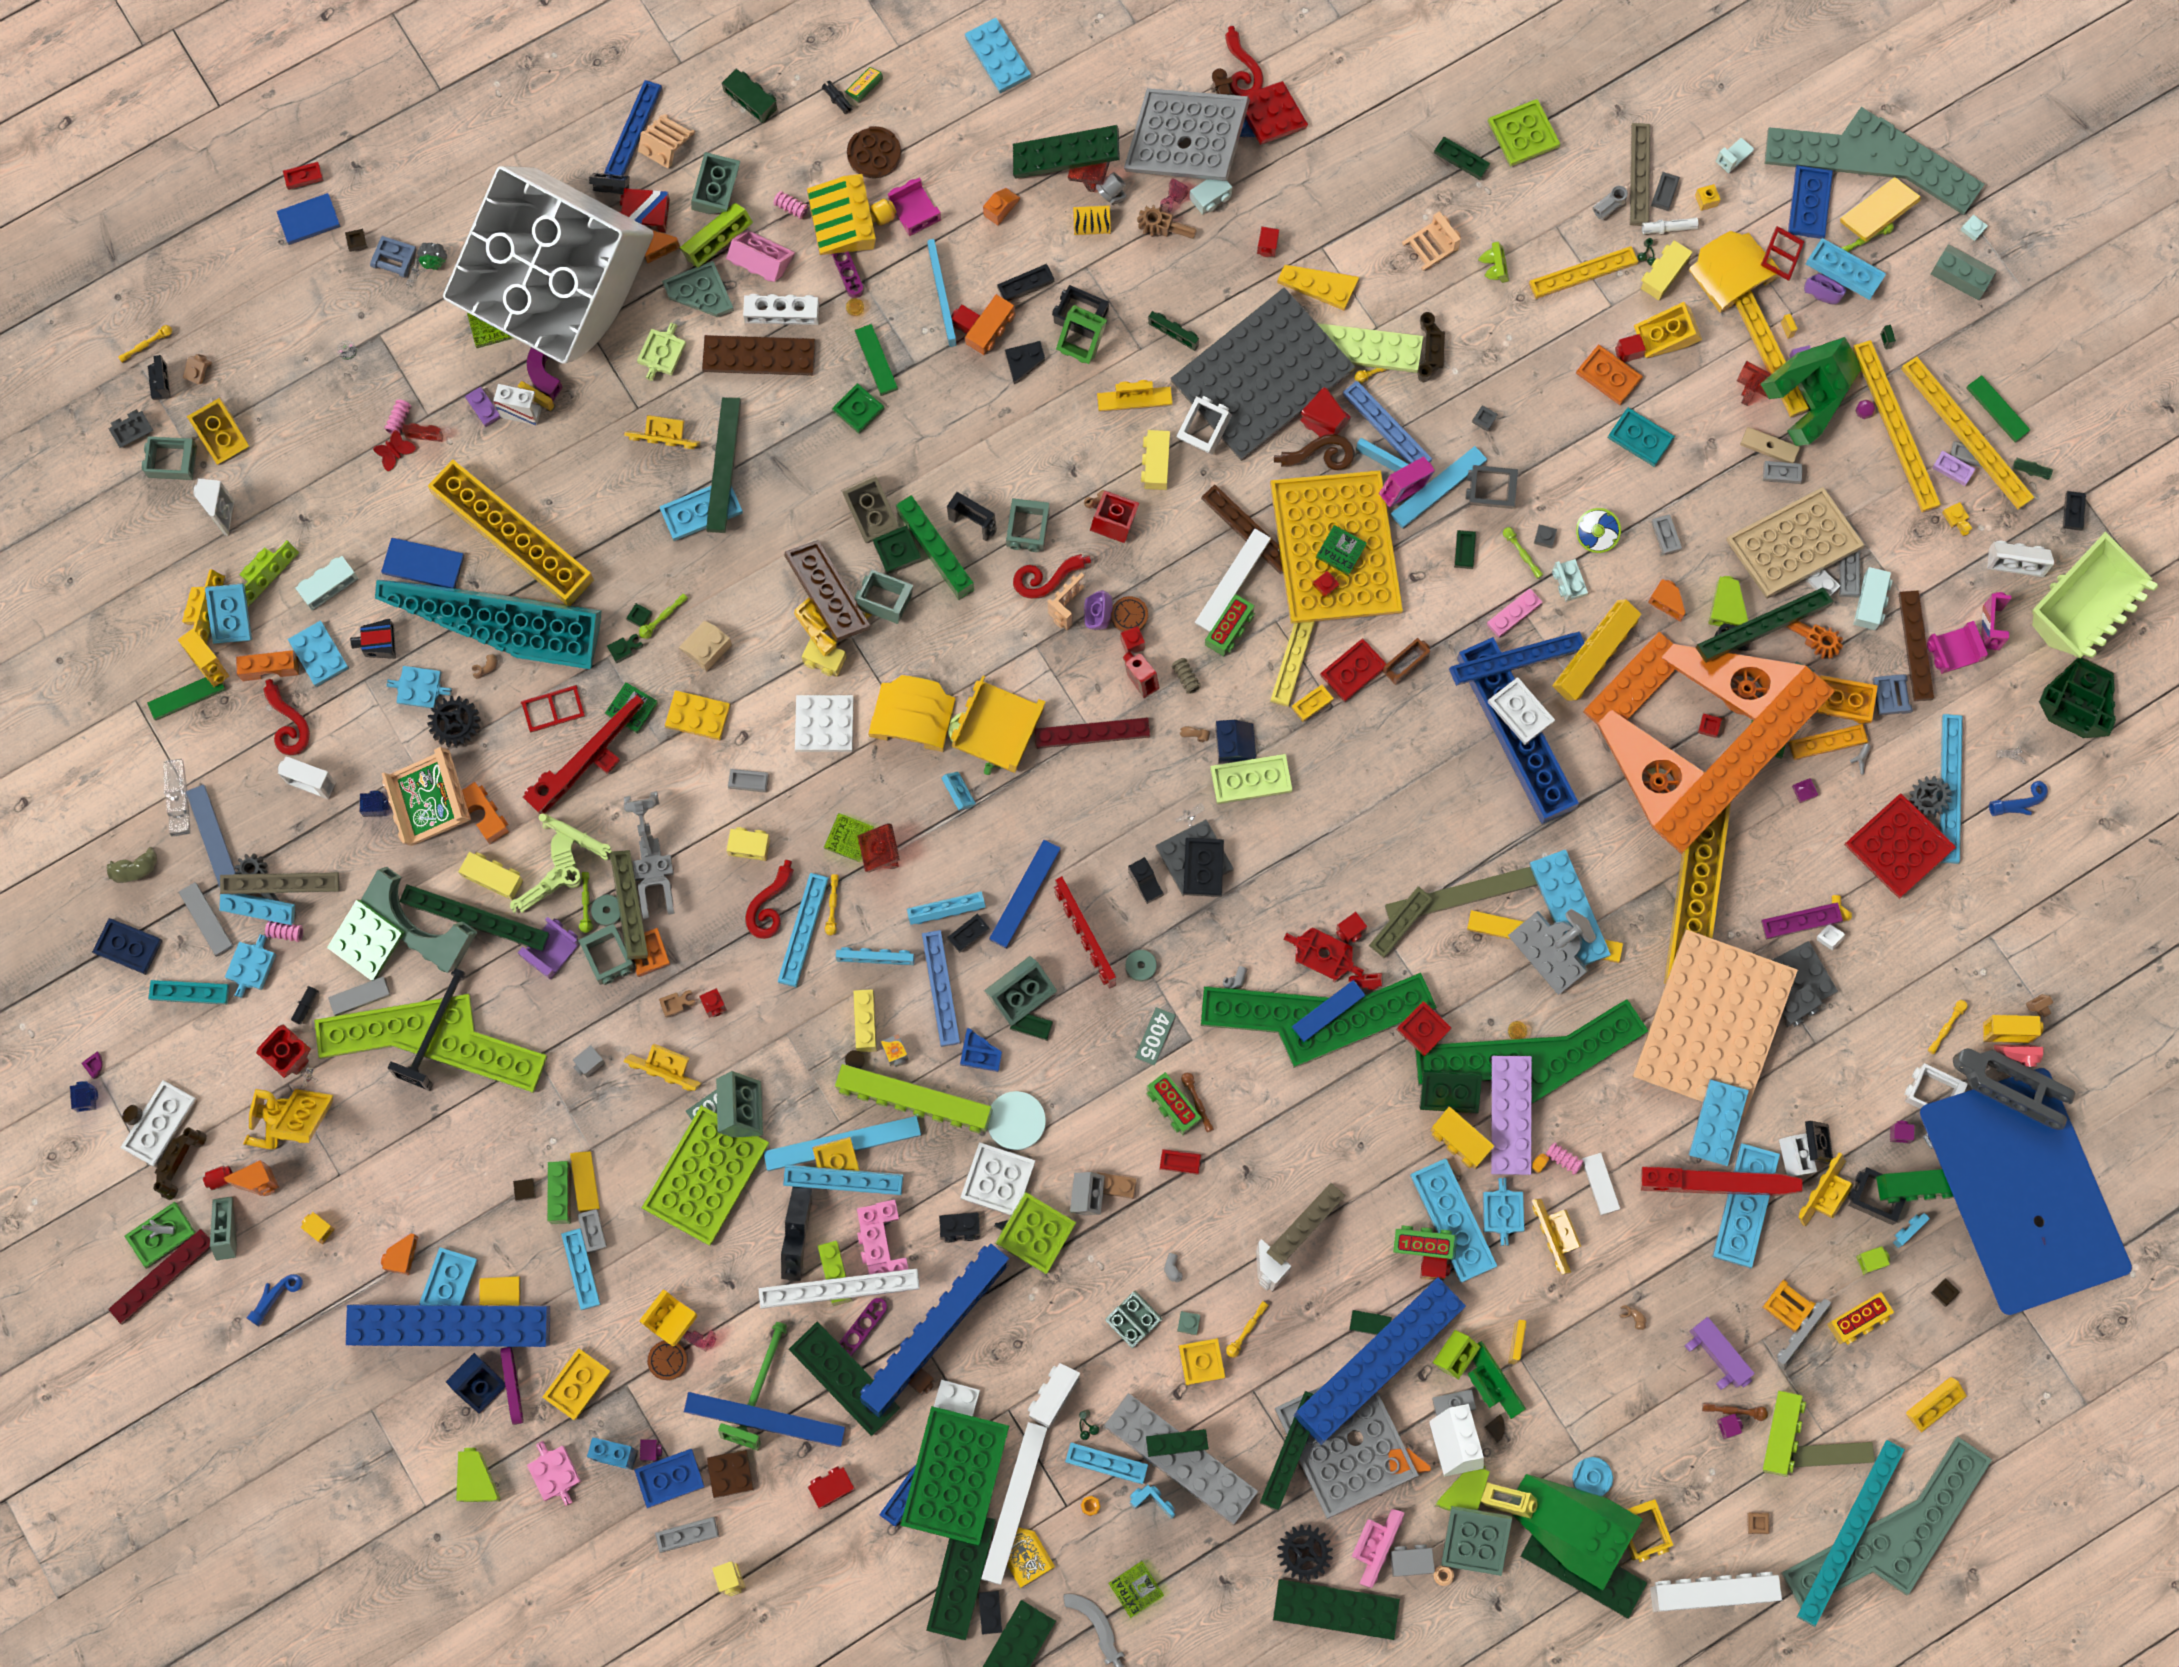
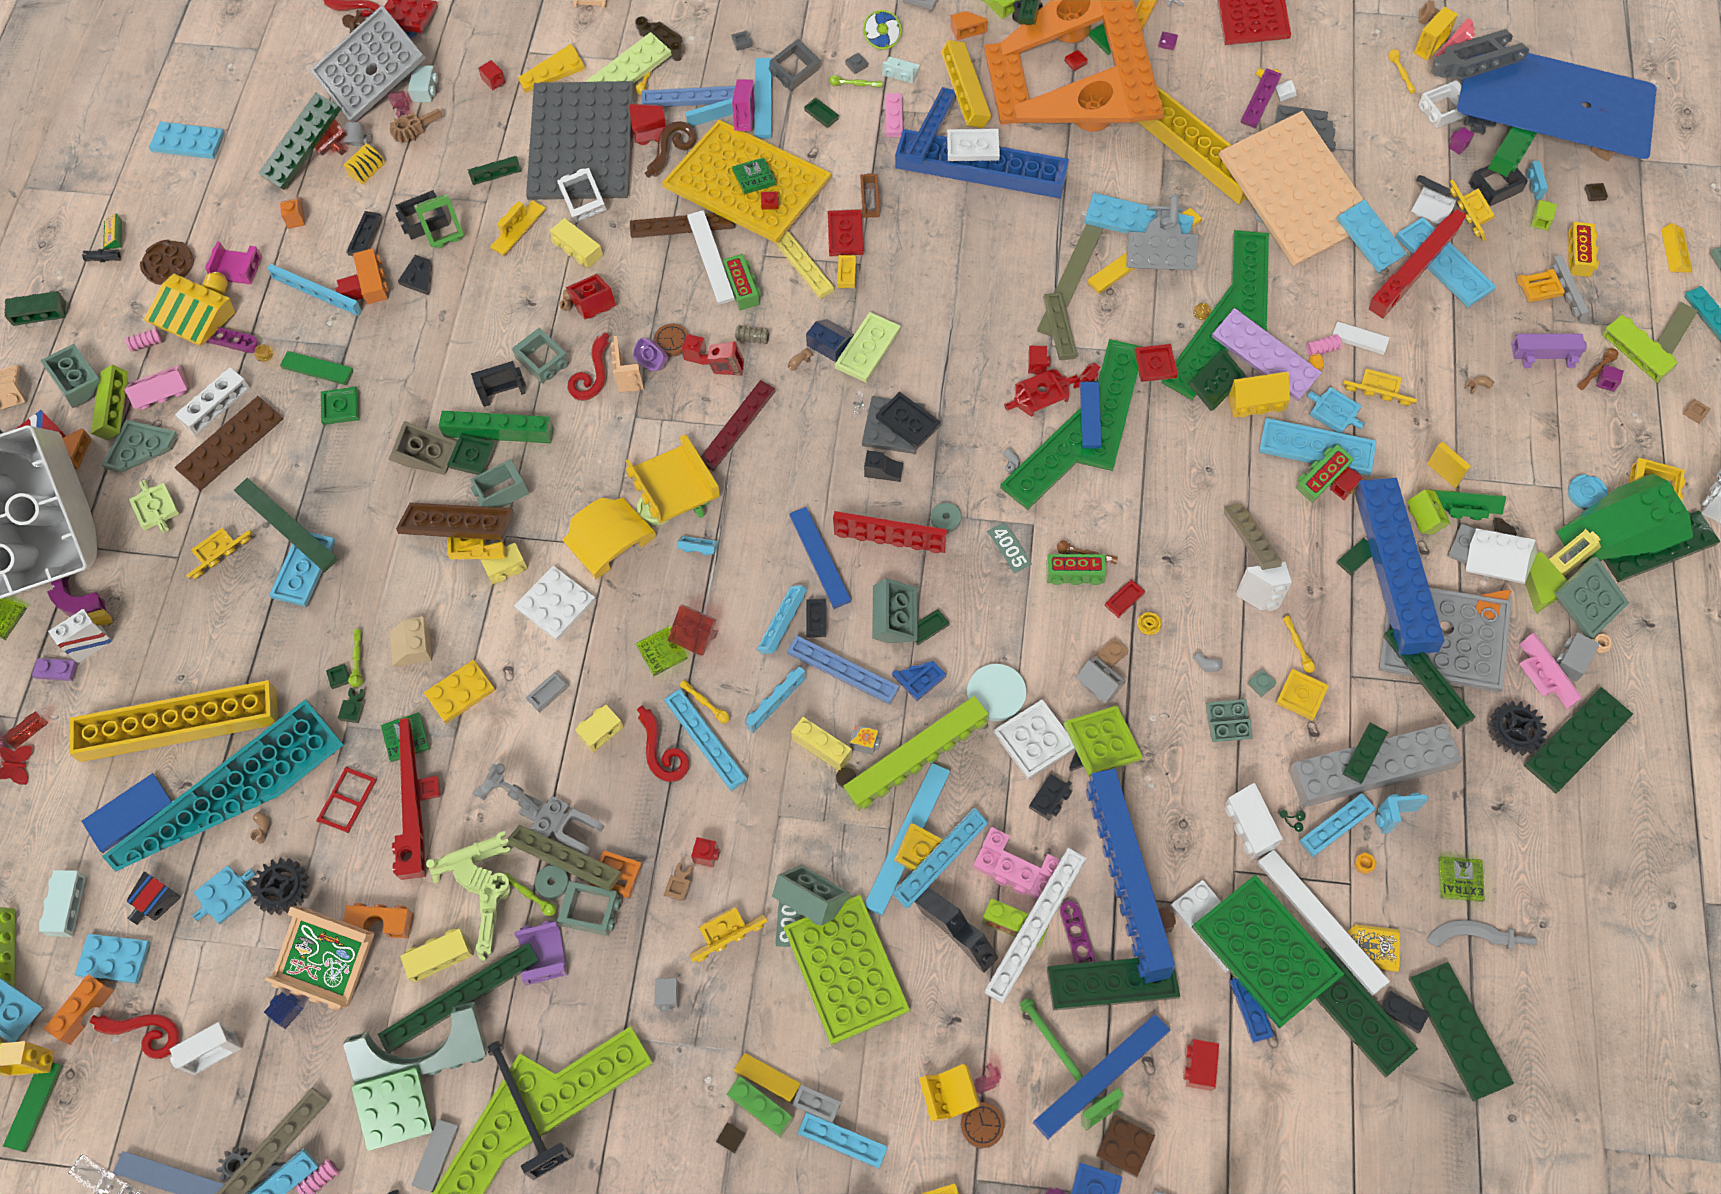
camera: 50 degrees left, 10 degrees down
(1176, 1193) = (1151, 618): none -> yellow plate

